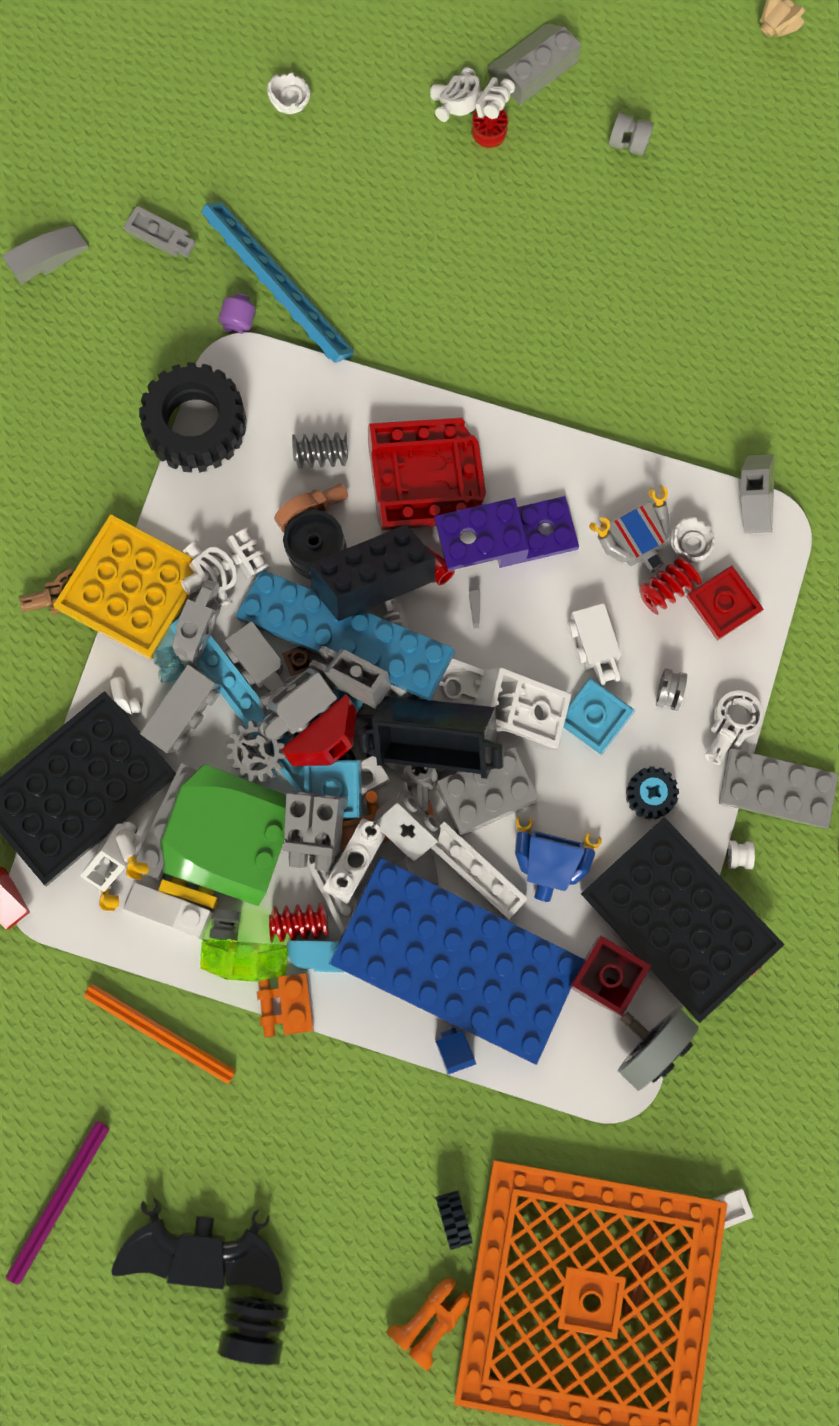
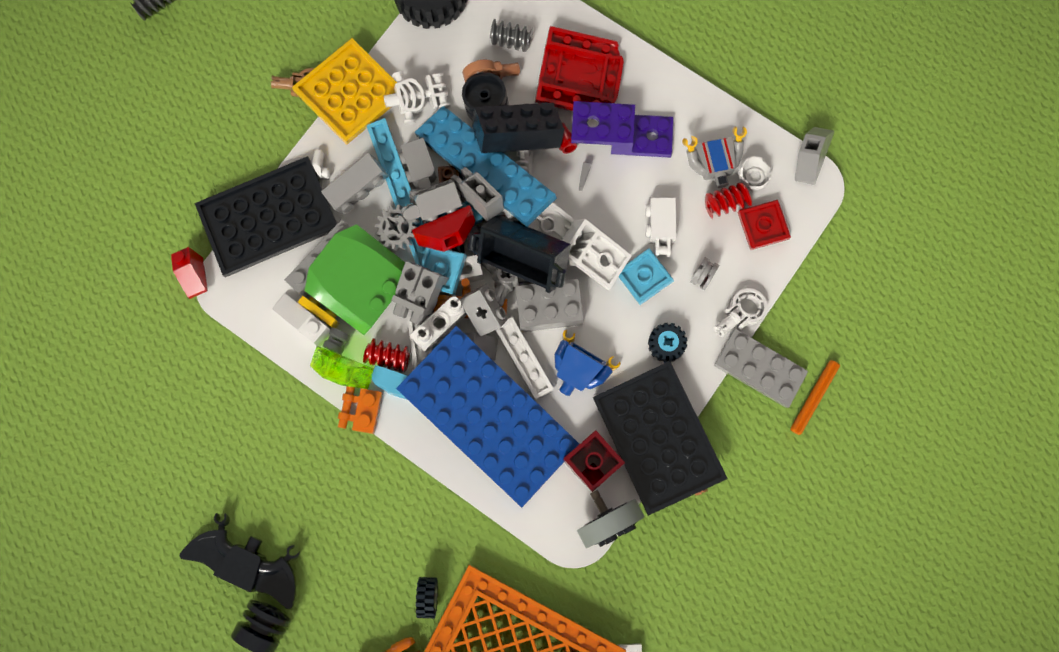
camera: 25 degrees right, 0 degrees up
(57, 1203) = (160, 495): magenta axle -> none
(110, 859) = (271, 271): white torso -> none
(159, 1033) = (268, 402): orange axle -> none
(168, 664) = (357, 149): clear light blue wheel -> none
(196, 624) = (384, 127): light grey piece -> none
(454, 1051) = (465, 479): blue slope -> none
(740, 855) = (718, 406): white wheel -> none

